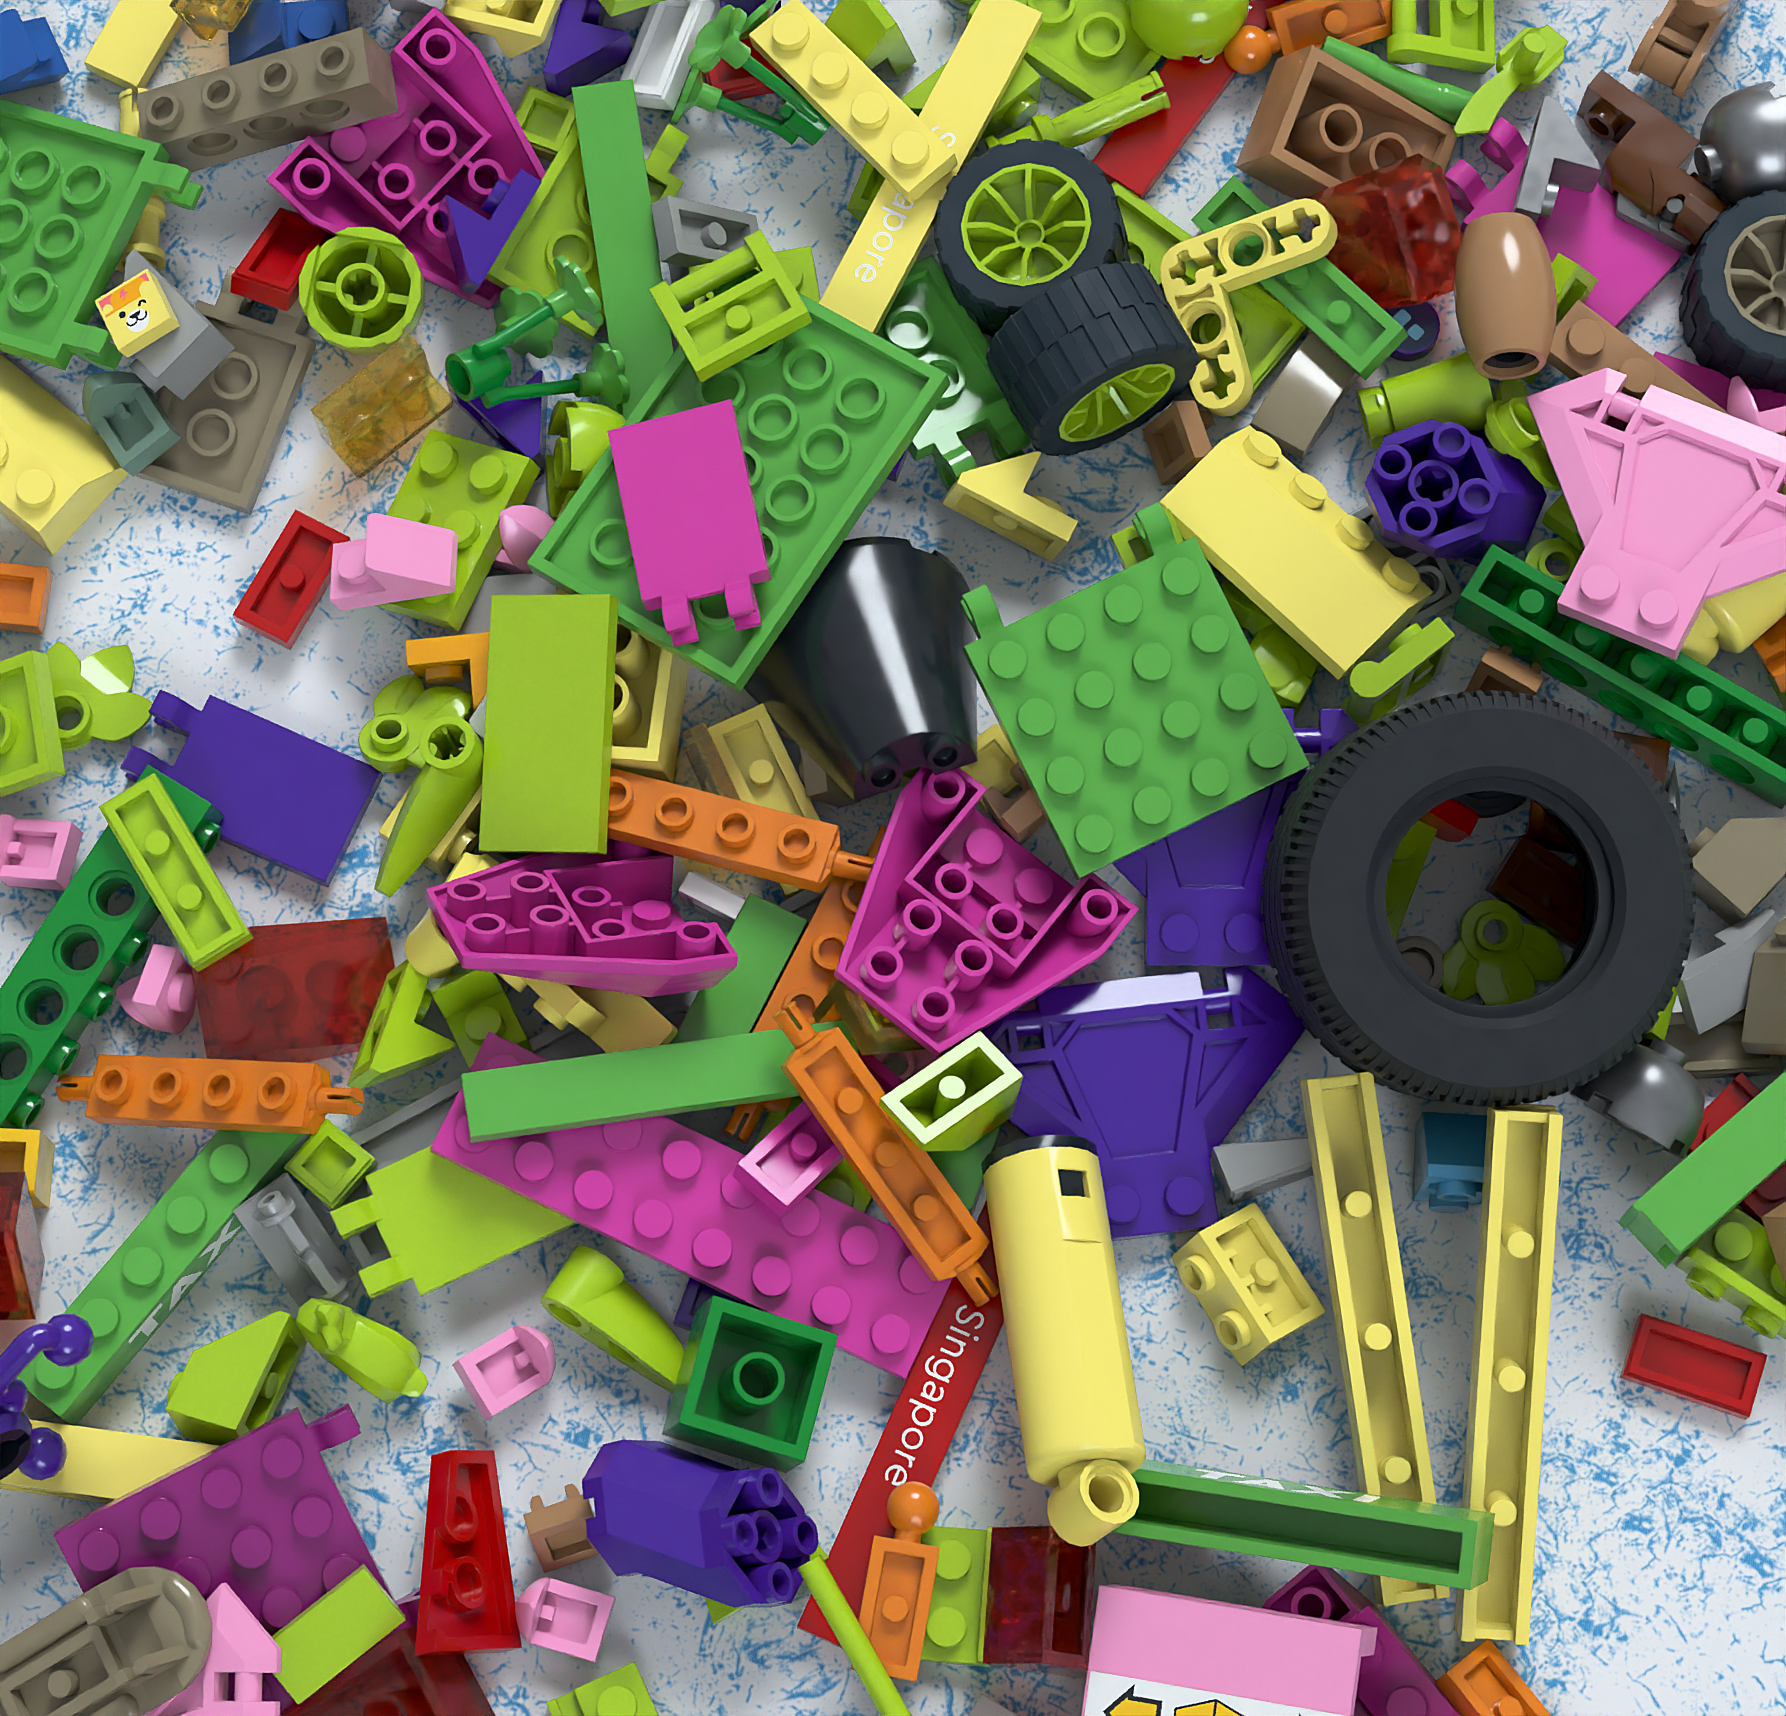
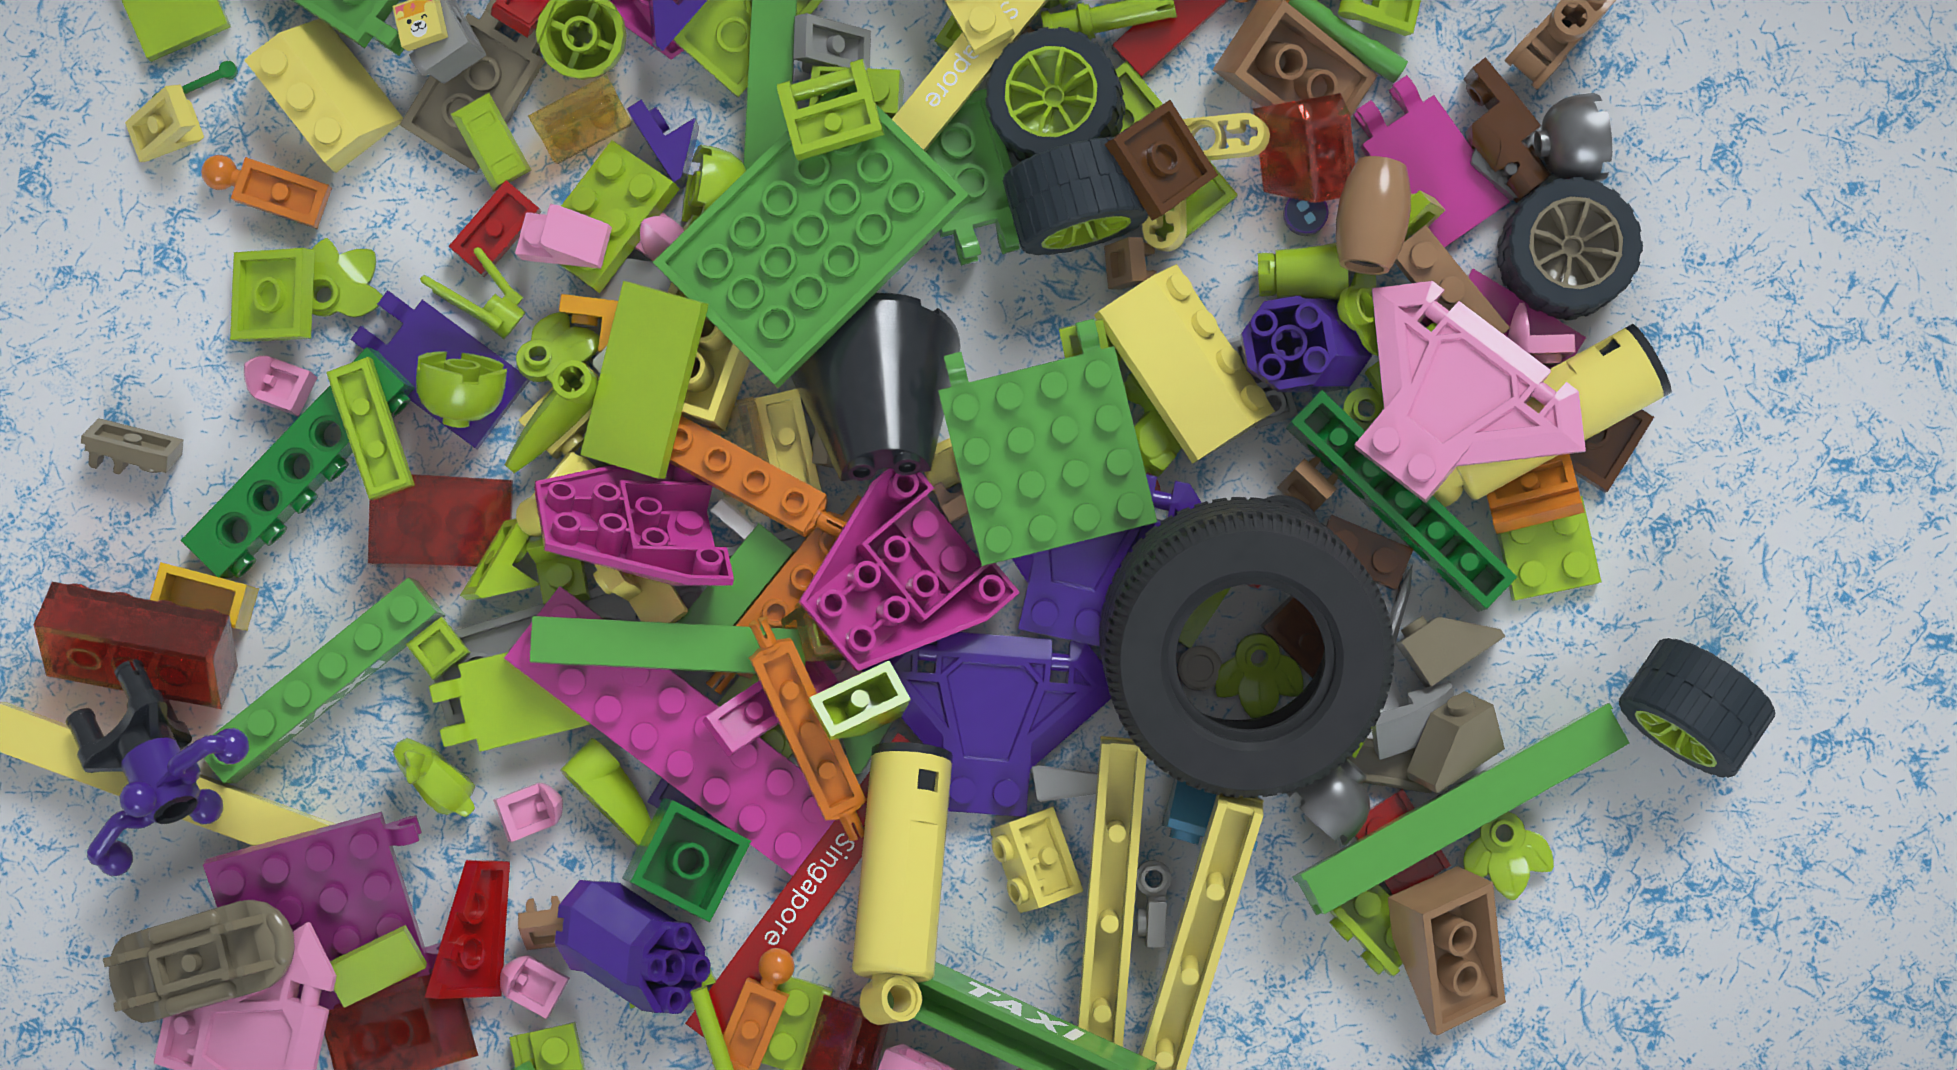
camera: 10 degrees right, 10 degrees up
(127, 418) = (403, 91): sand green tile -> none
(163, 994) = (346, 503): bright pink plate -> none
(209, 1094) = (364, 586): orange plate -> none
(236, 1380) = (346, 781): lime slope -> none
(263, 463) = (490, 141): none -> lime tile
(290, 796) = (461, 387): none -> lime cylinder
(295, 1243) = (405, 697): light grey hinge -> none
(320, 693) = (498, 313): none -> lime plant
(528, 326) = (694, 81): plant -> none
(691, 515) = (770, 257): dark pink tile -> none
(997, 501) = (990, 279): light yellow slope -> none
(1198, 280) = (1161, 160): none -> reddish brown tile
(1304, 397) = (1225, 245): dark tan slope -> none
(1313, 292) = (1245, 177): bright green plate -> none
(1414, 662) = (1242, 461): lime plate -> none
(1435, 1329) = (1152, 921): none -> light grey plate
(1520, 67) = (1430, 39): lime piece -> none
(1553, 158) = (1435, 112): flat silver slope -> none
(1693, 1366) = (1321, 979): red tile -> none

